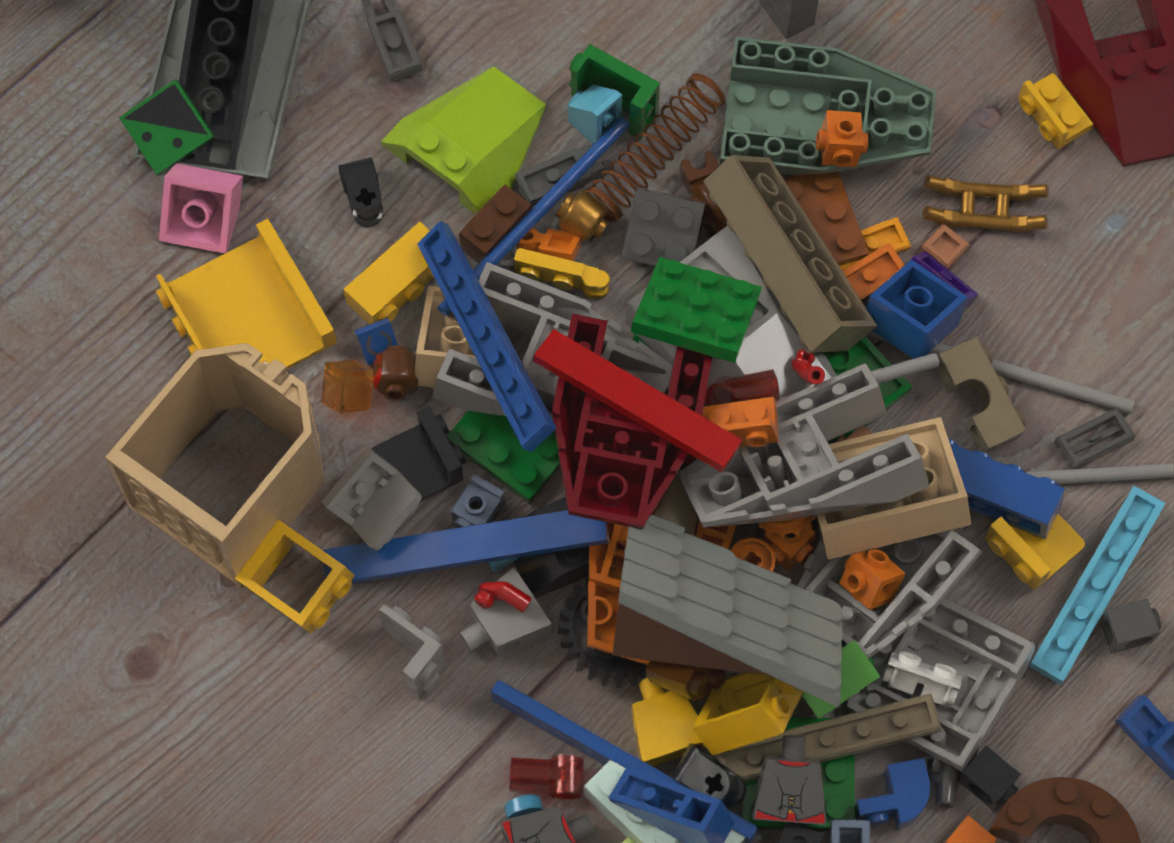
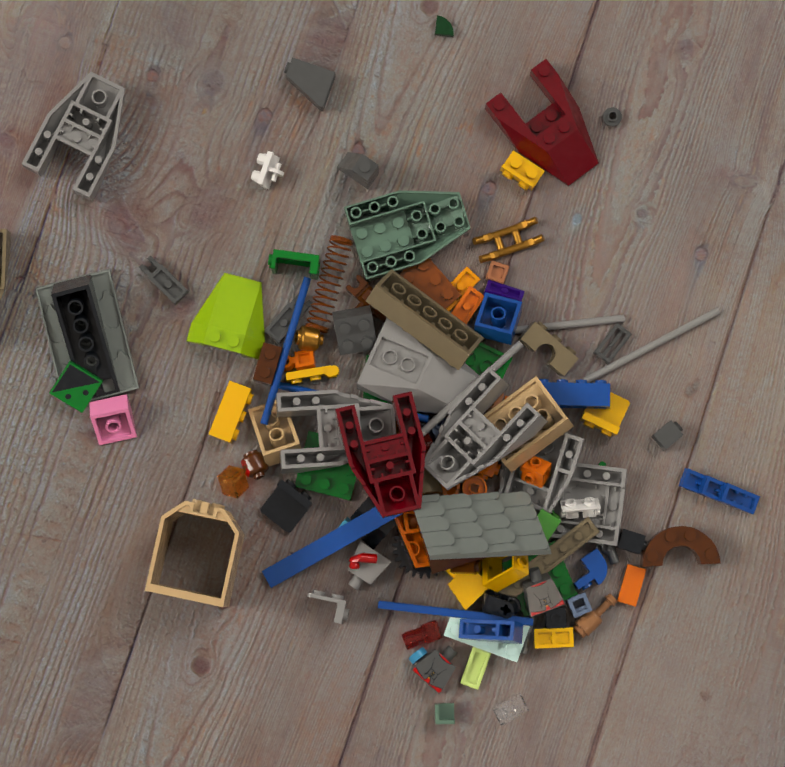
camera: 25 degrees left, 15 degrees up
(251, 299) = (163, 465): yellow panel -> none
(269, 556) = (237, 588): yellow window -> none
(362, 188) = (188, 370): black piece -> none
(373, 499) = (276, 537): light grey bracket -> none
(375, 339) = (236, 451): blue tile -> none
(483, 493) = (331, 509): sand blue brick -> none
(486, 337) = (295, 435): blue tile -> none
(594, 111) = (289, 278): medium azure slope -> none
(637, 400) = (388, 443): red tile -> none
(696, 309) = (394, 376): green plate -> none
(745, 387) = (434, 405): clear red piece -> none
(750, 420) = (441, 427): orange bracket -> none
(802, 366) = (460, 380): red arm -> none
(841, 139) = (424, 245): orange brick -> none
(1097, 585) = (643, 420): medium azure plate -> none

